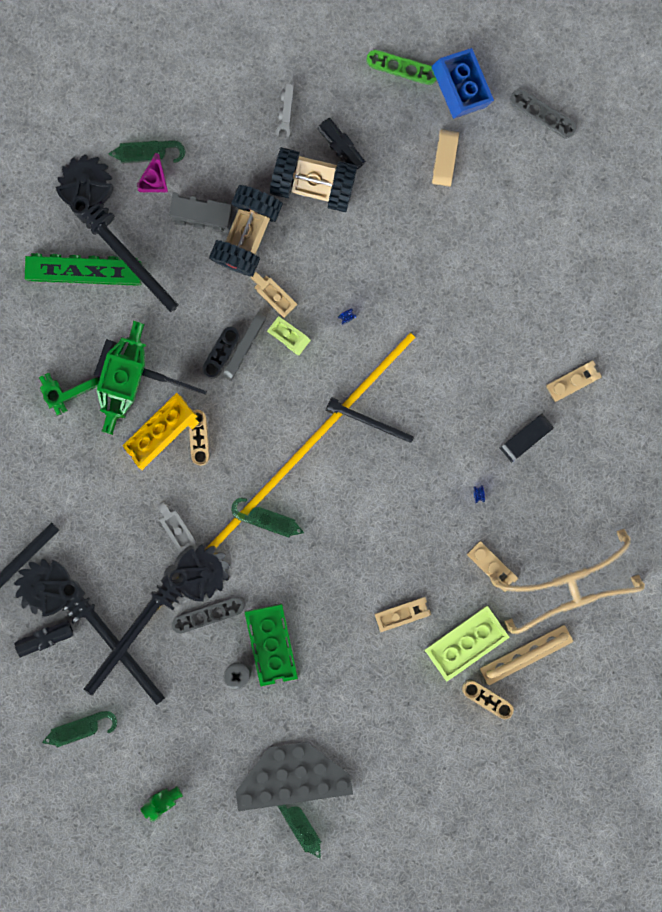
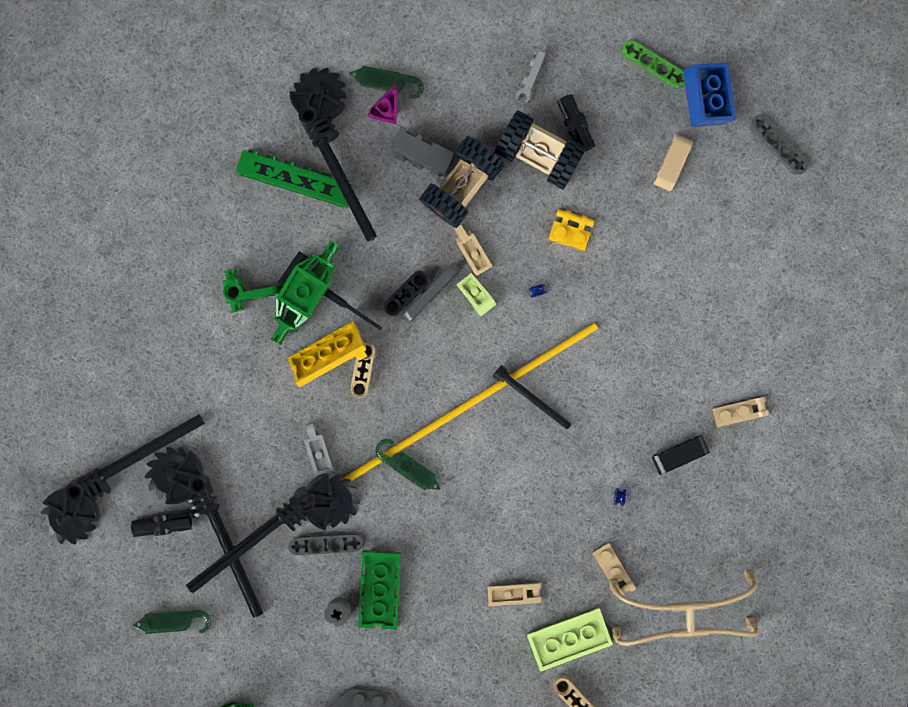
camera: 20 degrees right, 0 degrees up
(361, 254) = (570, 235): none -> yellow plate
(527, 657) = (586, 677): tan piece -> none

